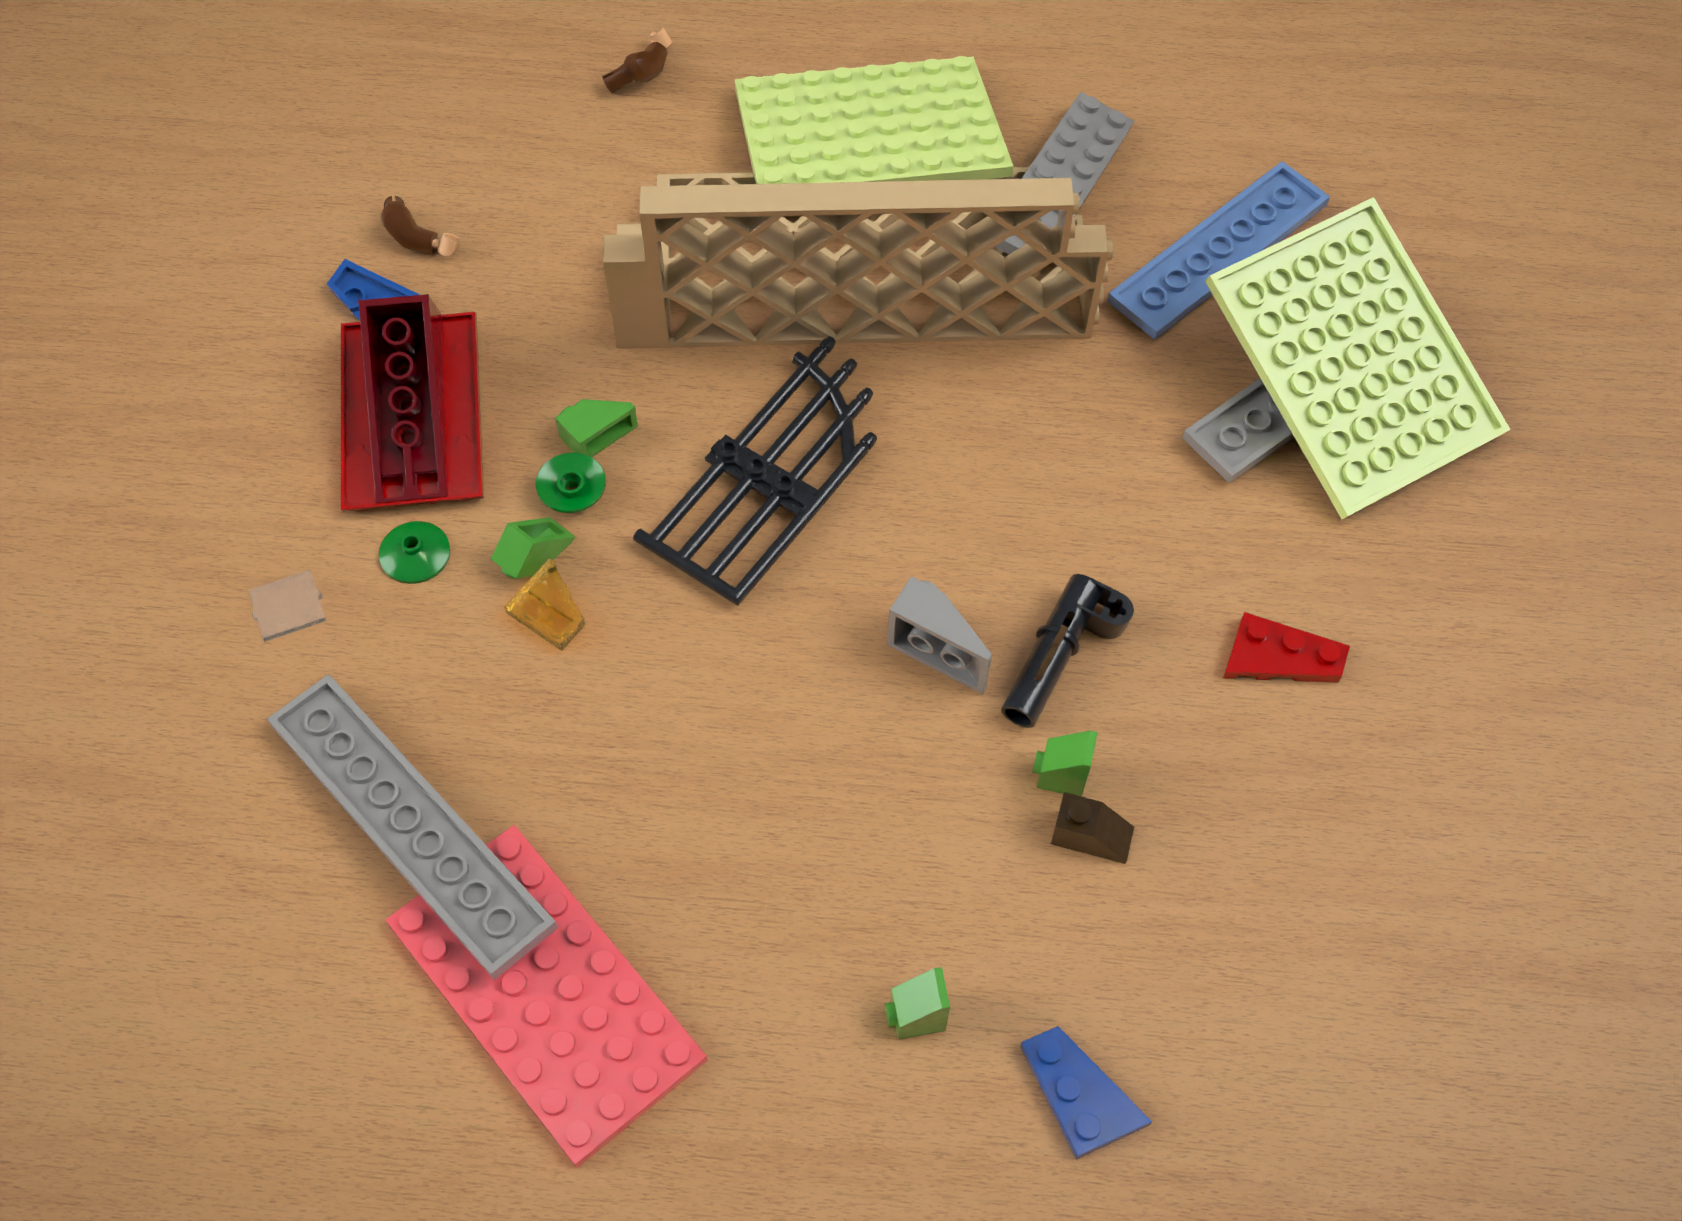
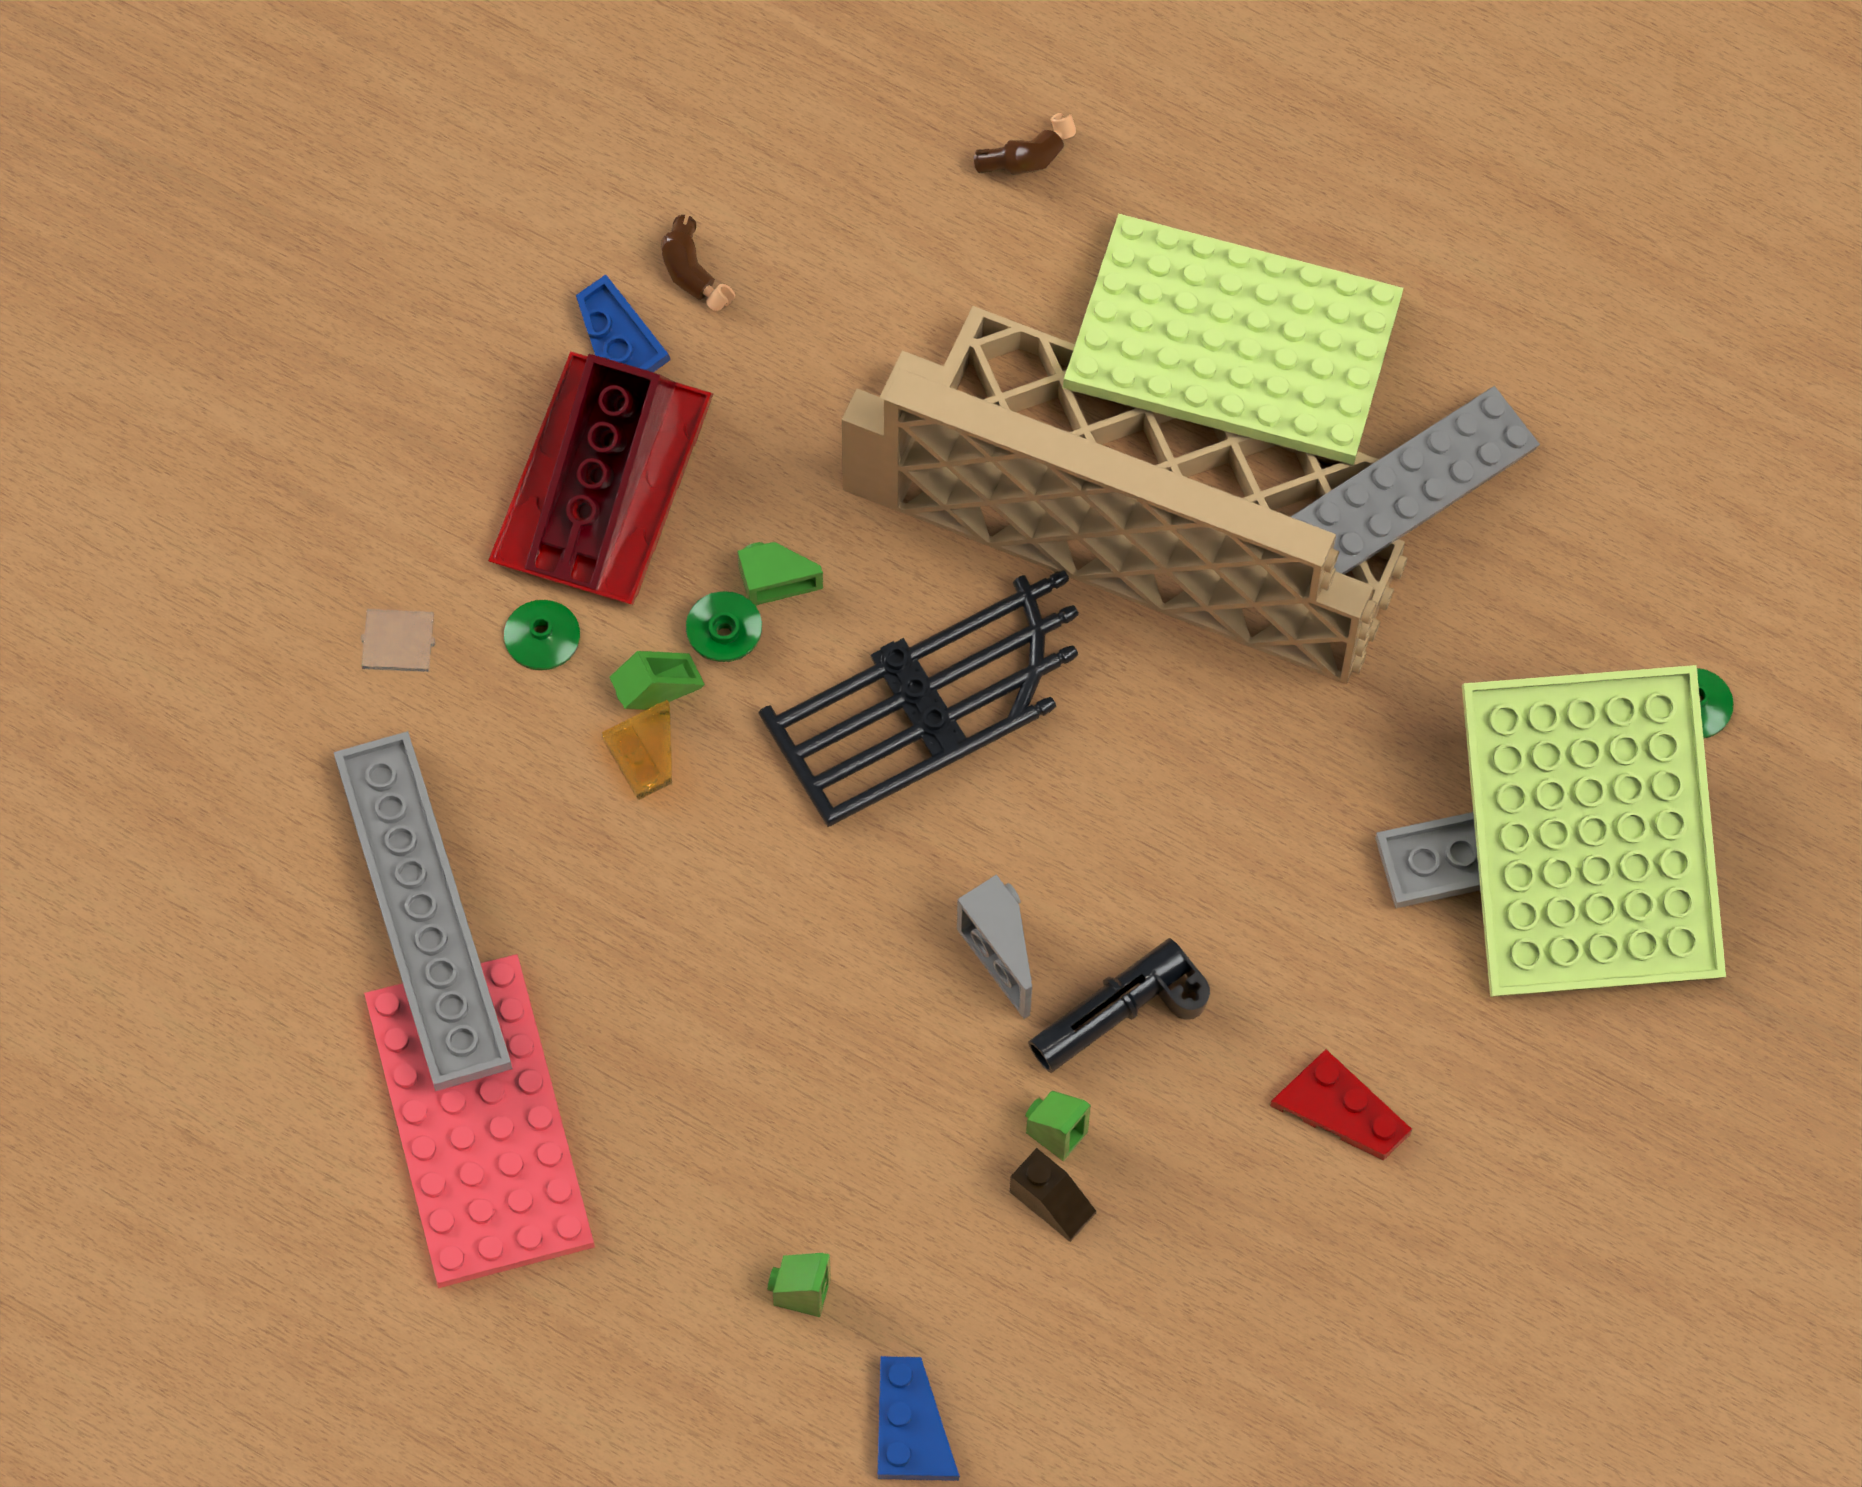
camera: 25 degrees right, 5 degrees up
(1247, 224) = (1544, 637): medium blue plate -> none

